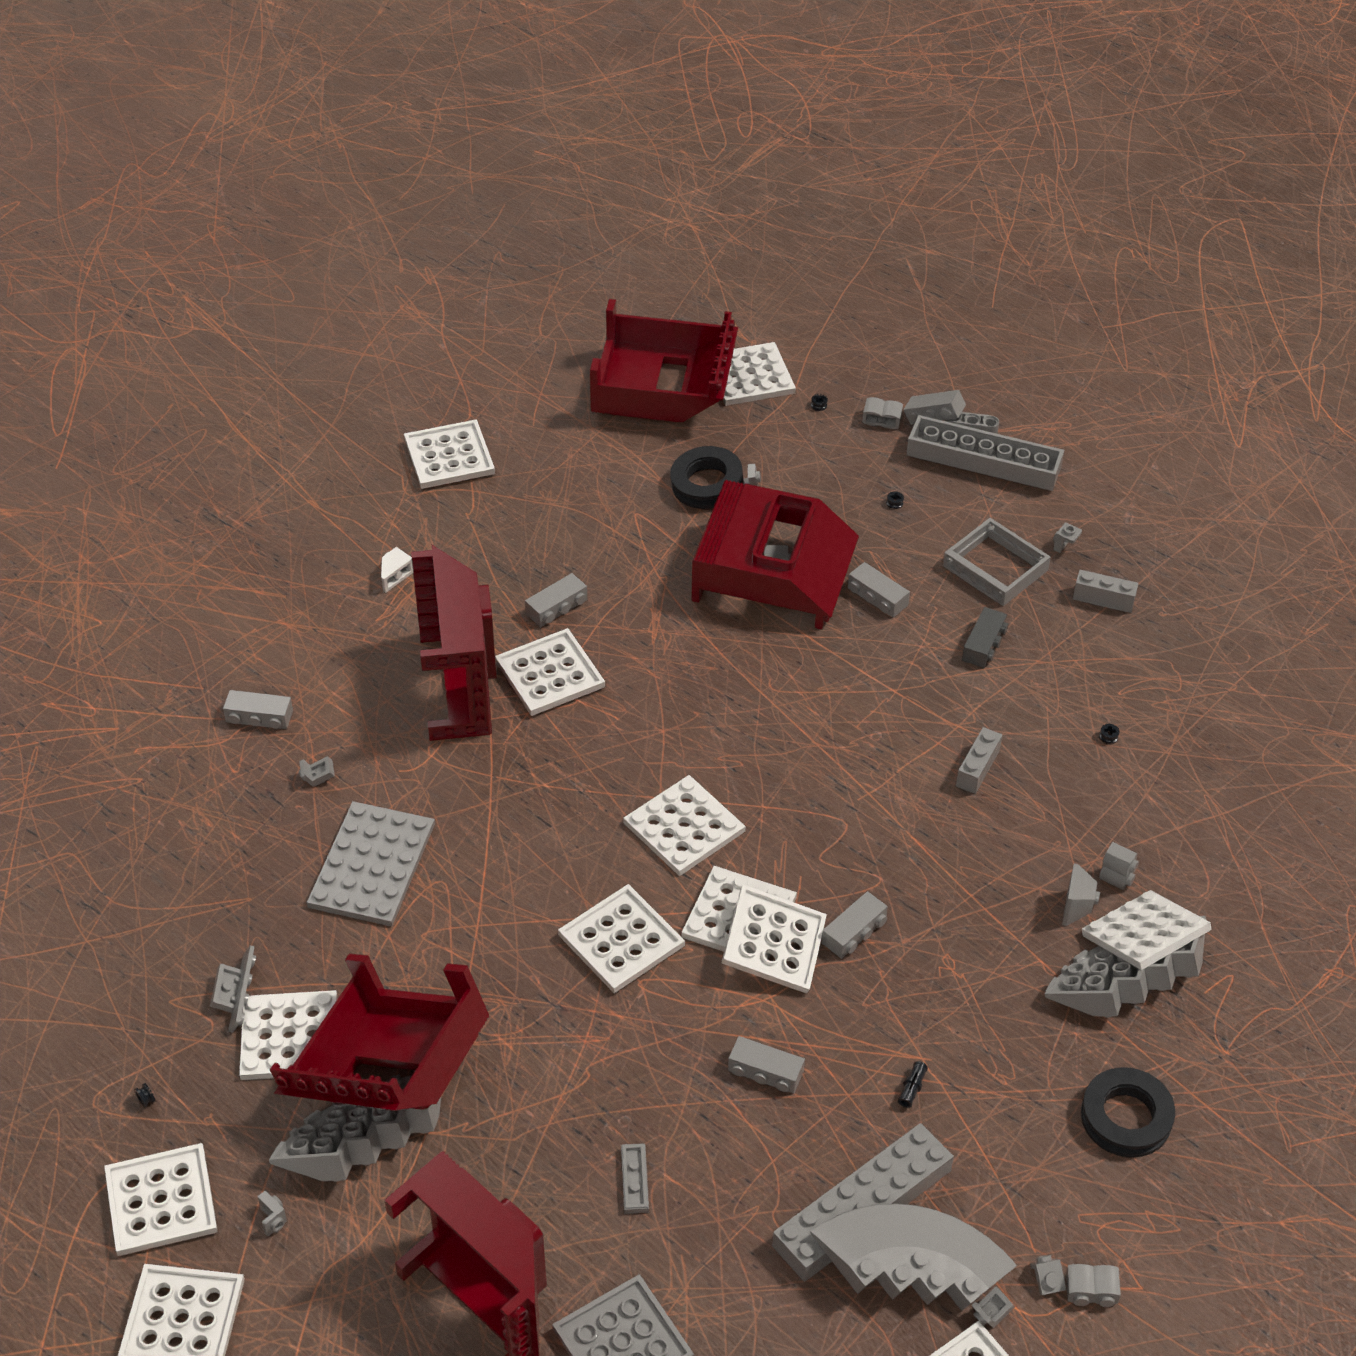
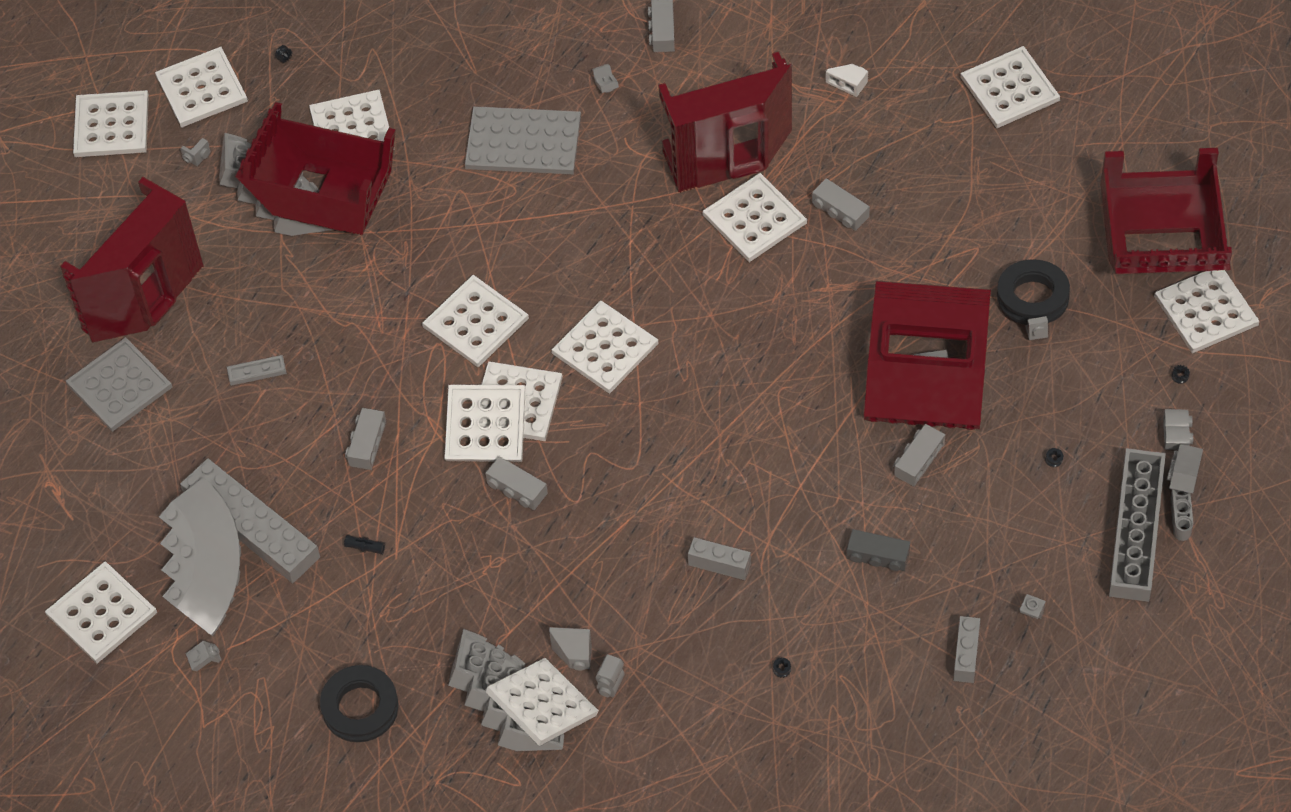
camera: 85 degrees right, 10 degrees up
(231, 986) = (384, 78): light grey bracket -> none
(983, 581) = (982, 512): light grey window -> none
(993, 1307) = (167, 617): light grey bracket -> none
(1093, 1284) = (195, 686): light grey brick -> none

